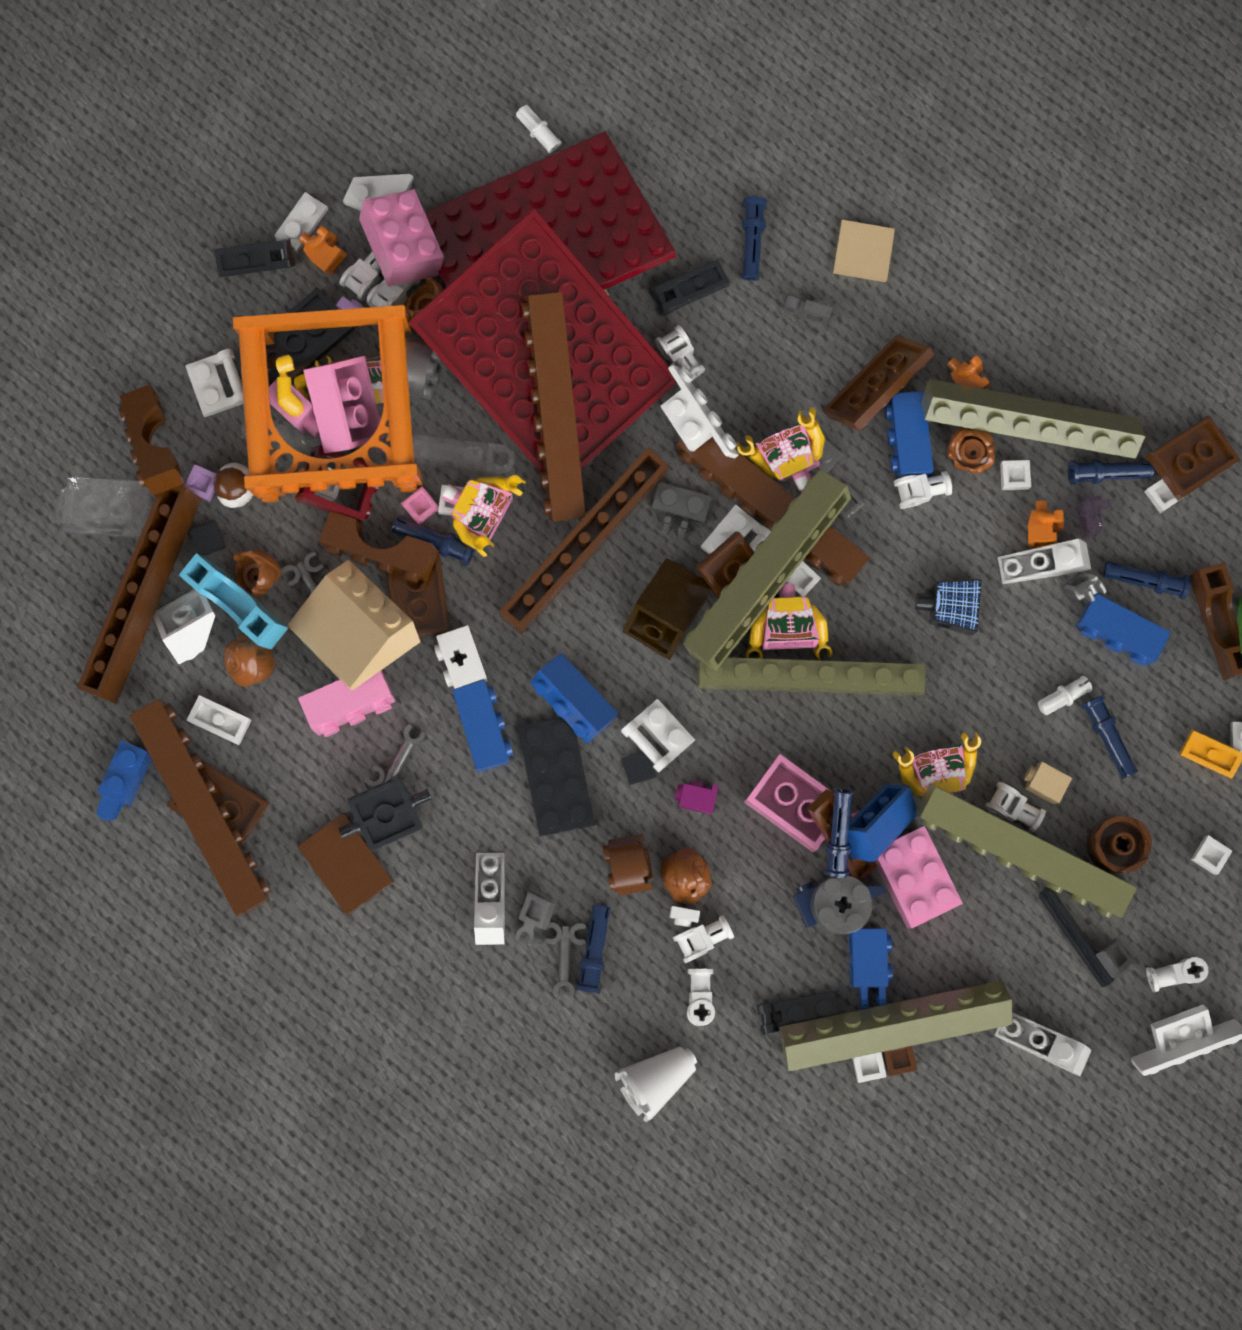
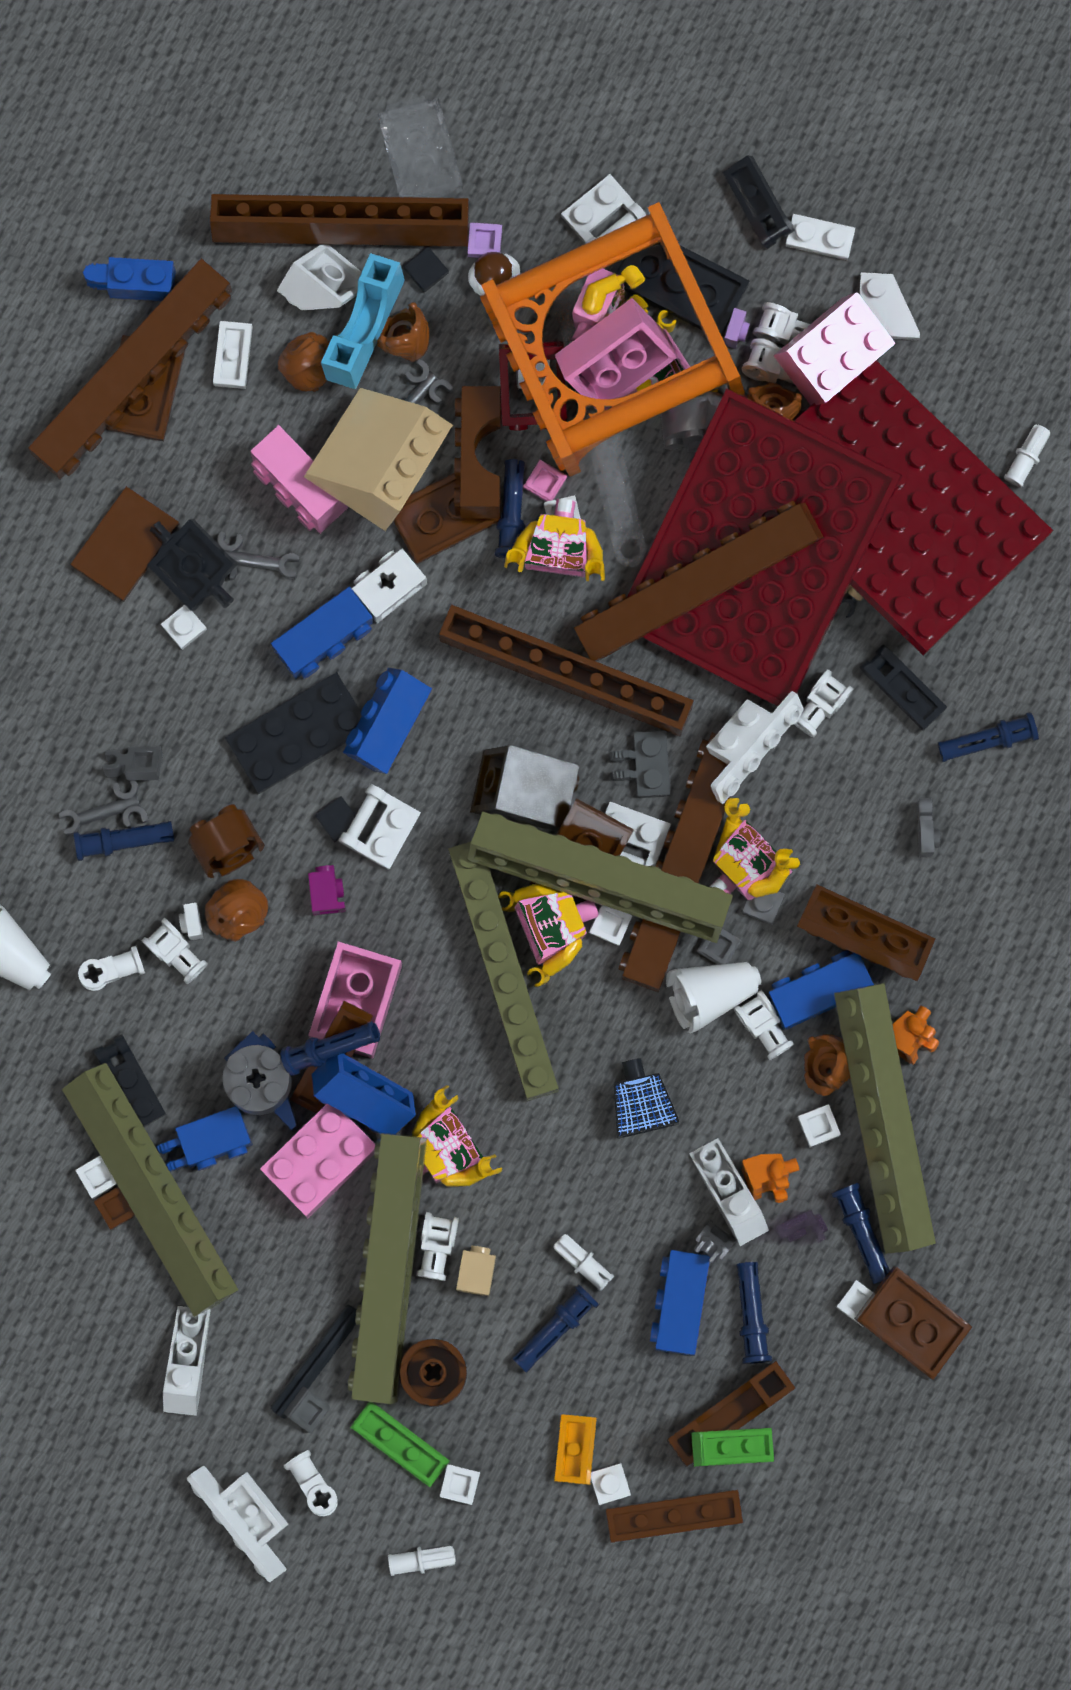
camera: 80 degrees right, 0 degrees up
(157, 465) = (536, 149): reddish brown arch -> none
(322, 252) = (792, 271): orange piece -> none
(433, 839) = (183, 627): none -> white plate
(489, 899) = (138, 708): white slope -> none
(863, 251) = (1022, 869): tan tile -> none
(884, 521) = (710, 991): none -> white cone
(1164, 891) = (400, 1444): none -> bright green tile

